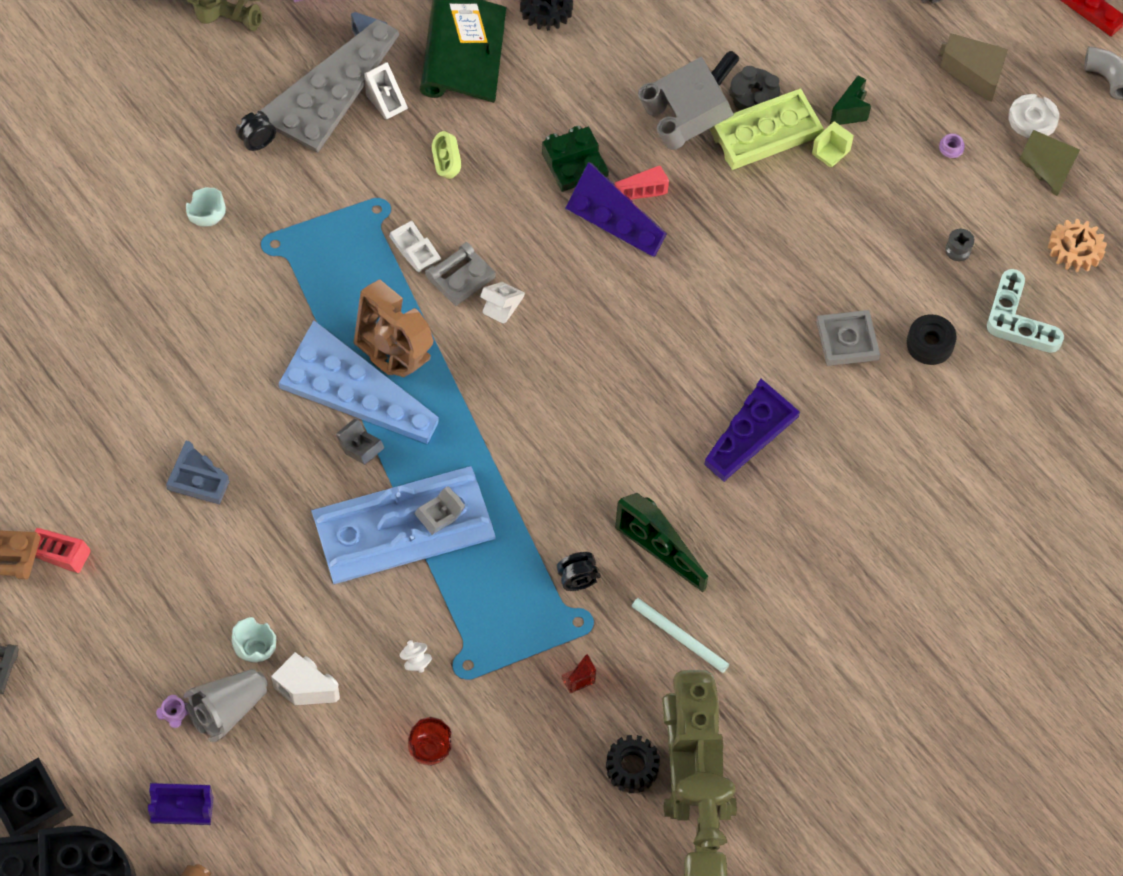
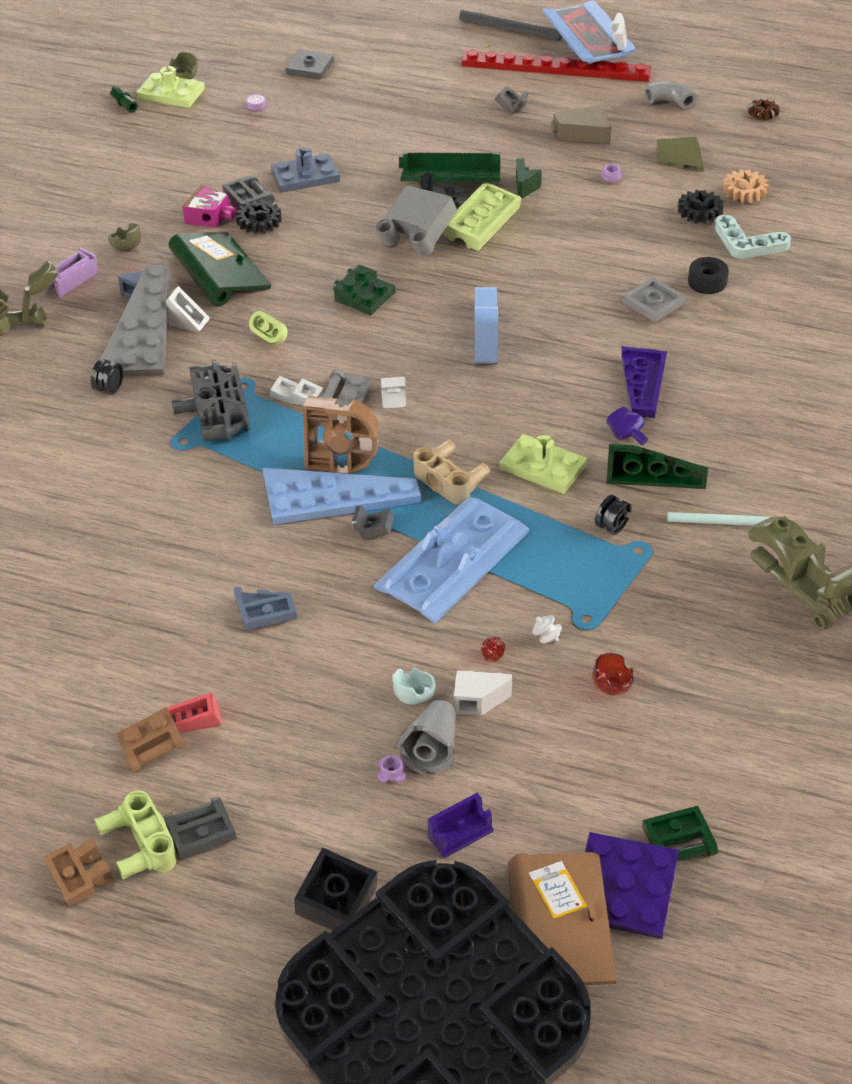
camera: 30 degrees left, 15 degrees down
(206, 207) = (110, 438): light aqua hair -> none
(340, 225) = (217, 400): none -> dark grey piece
(355, 645) = (493, 648): none -> clear red plate
(440, 510) = (481, 523): light grey bracket -> none
(463, 427) = (444, 476): none -> tan piece
(572, 470) = (543, 463): none -> yellowish green plate
(581, 676) = (678, 576): clear red slope -> none
(608, 208) = (423, 303): dark purple wing -> none
(632, 780) = (768, 620): black tyre -> none
(635, 288) = (486, 325): none -> light blue beam
(645, 184) = (429, 281): coral slope -> none
(685, 474) = (627, 424): none -> dark purple piece
(784, 50) = (451, 167): none -> dark green door
(832, 144) = (534, 204): yellowish green panel -> none
(954, 249) = (672, 219): dark grey wheel -> none
(993, 237) = (700, 206): none -> black gear
(1032, 114) = (644, 137): white tile -> none

